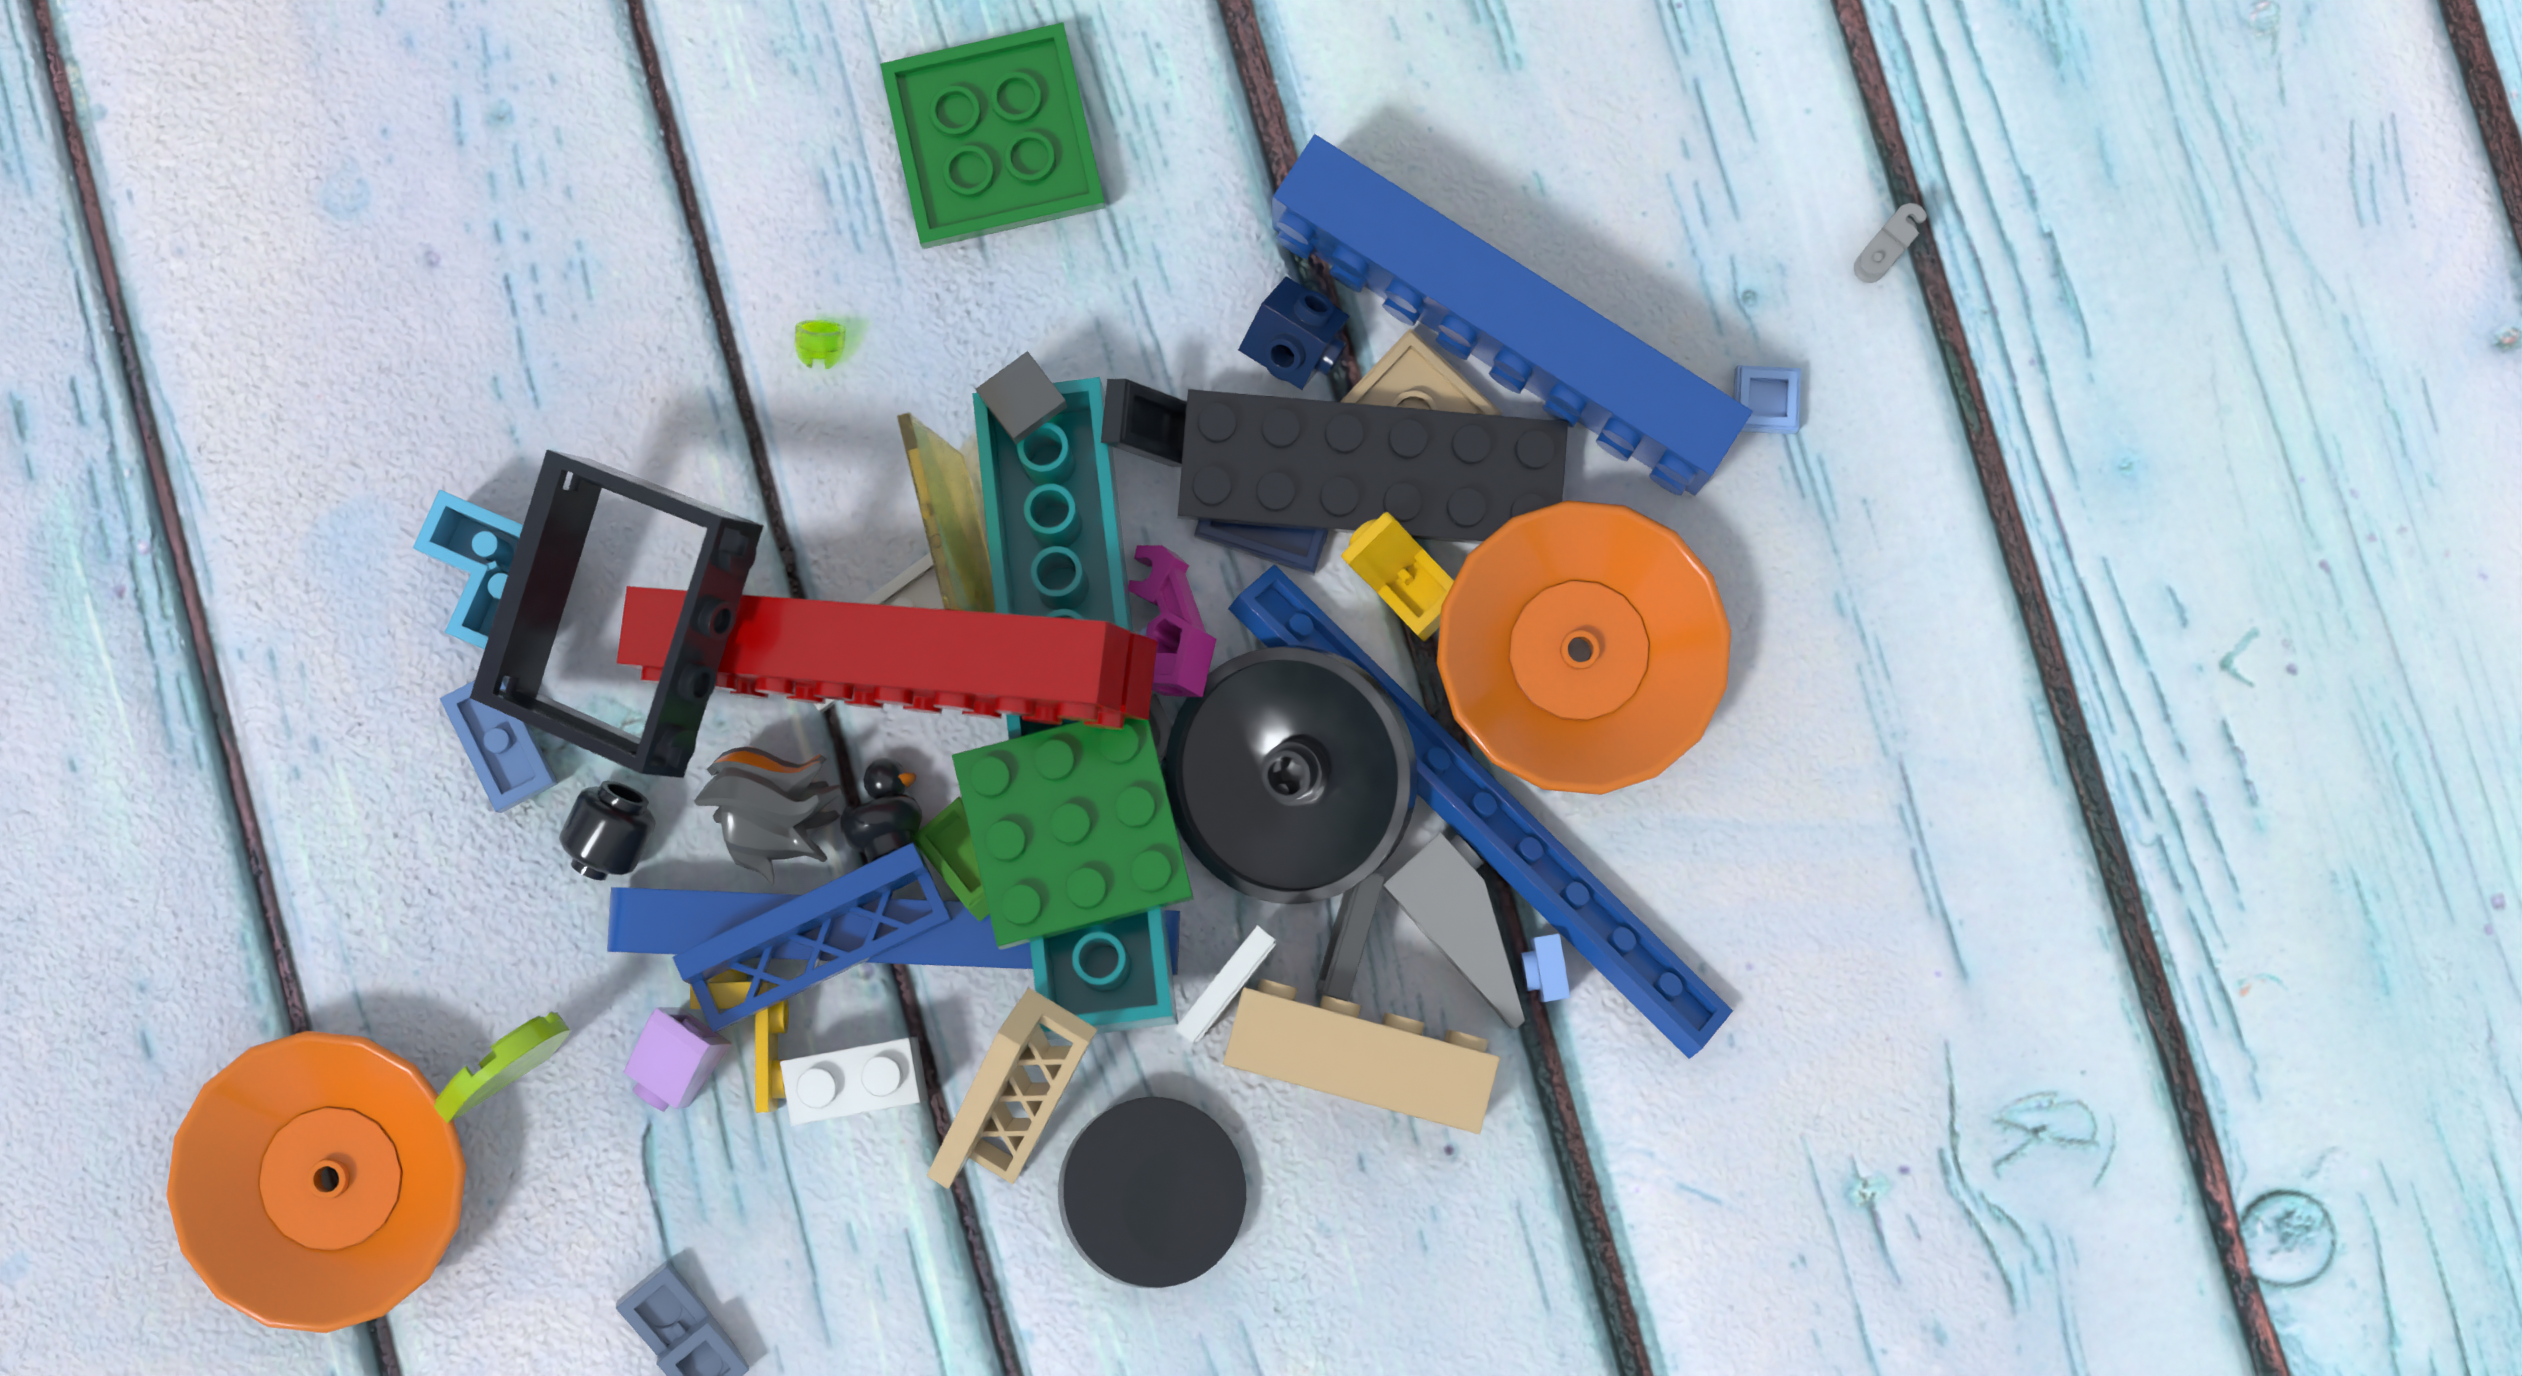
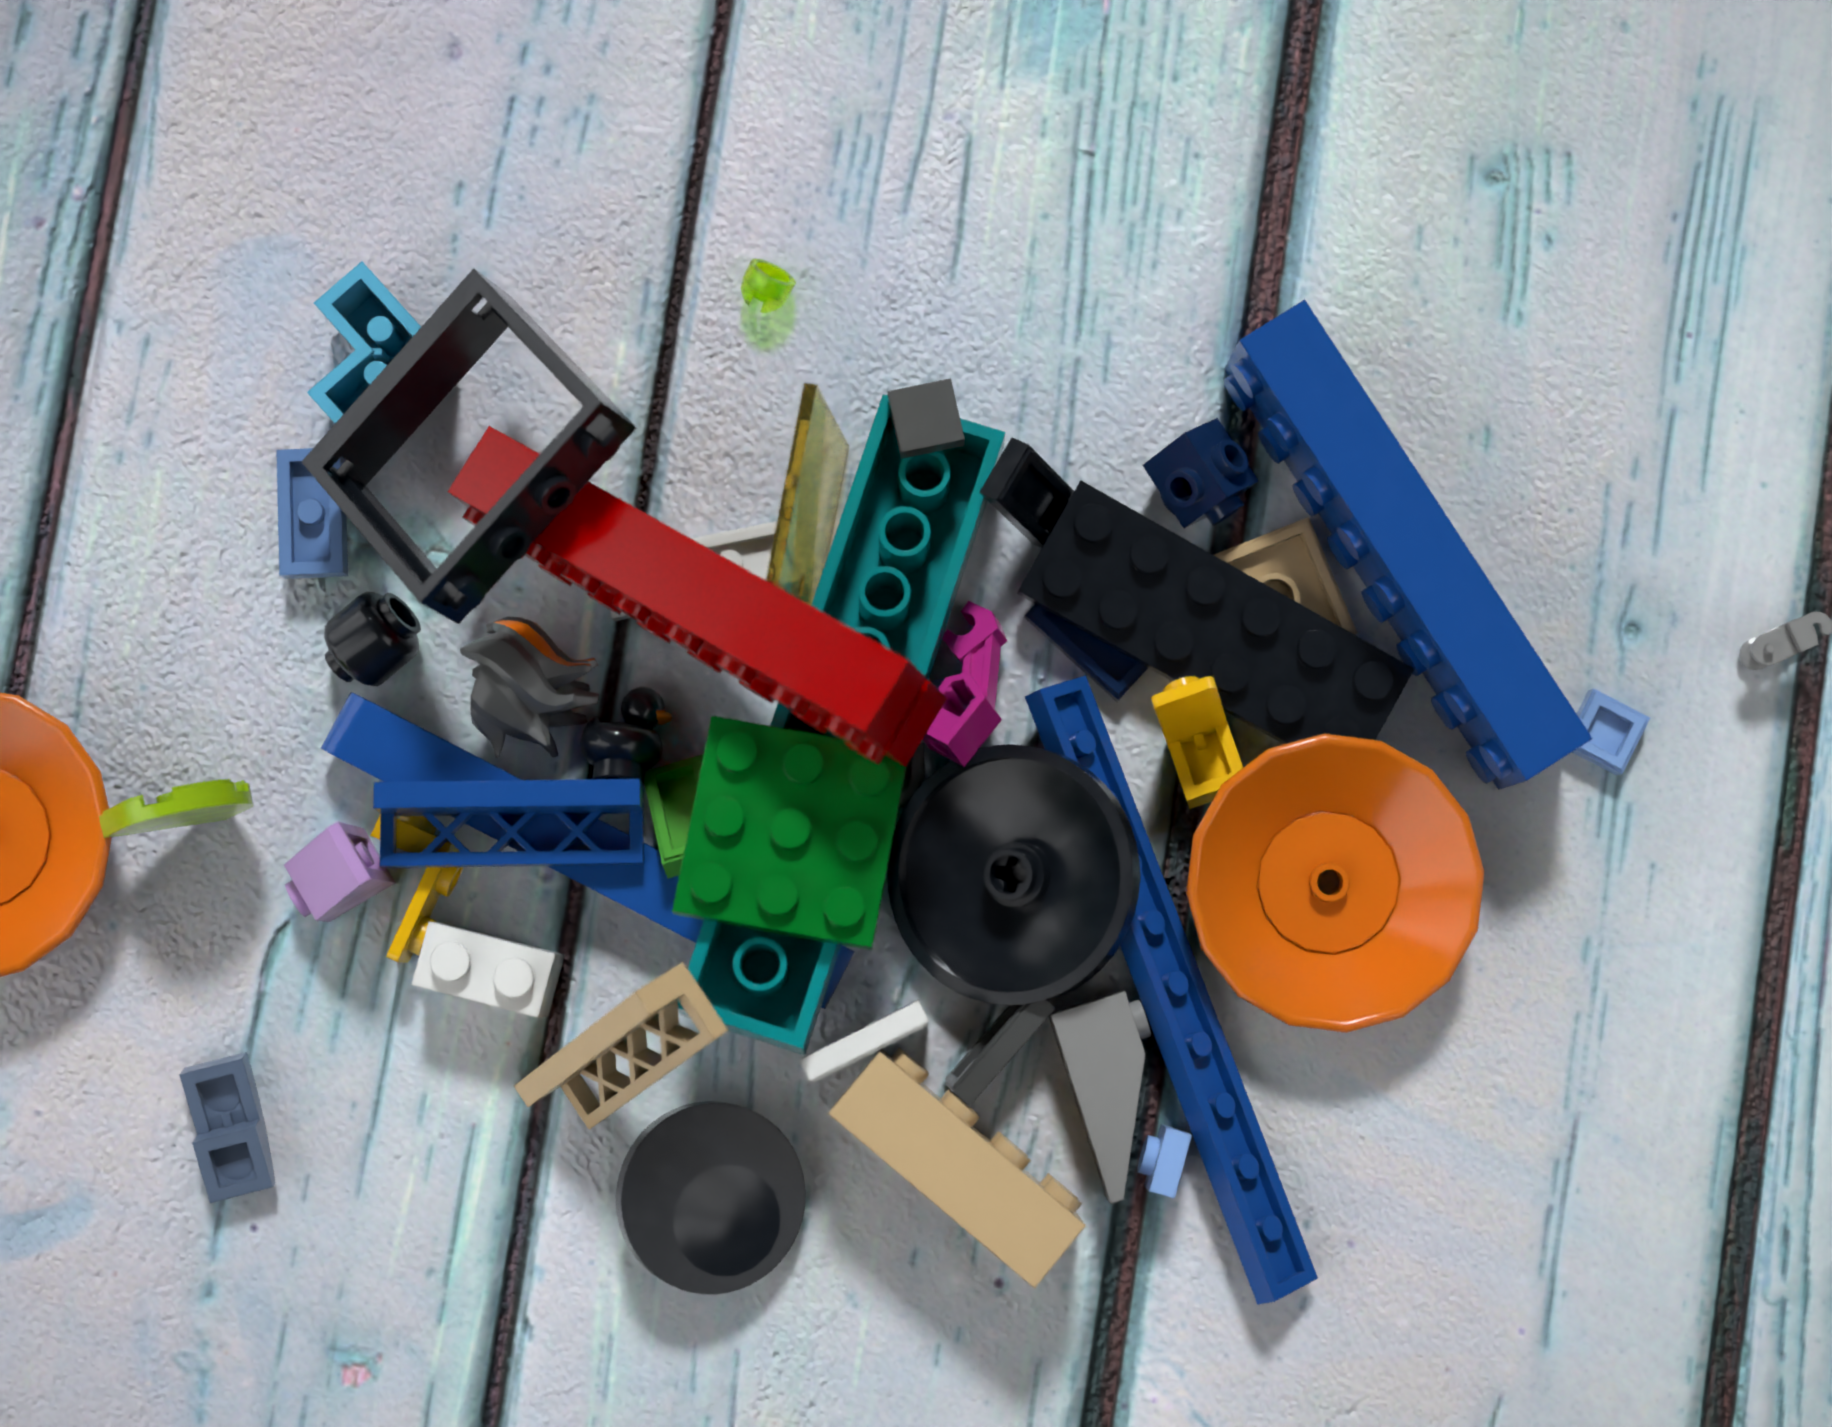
camera: 20 degrees right, 0 degrees up
(992, 136) = (1008, 169): green plate -> none

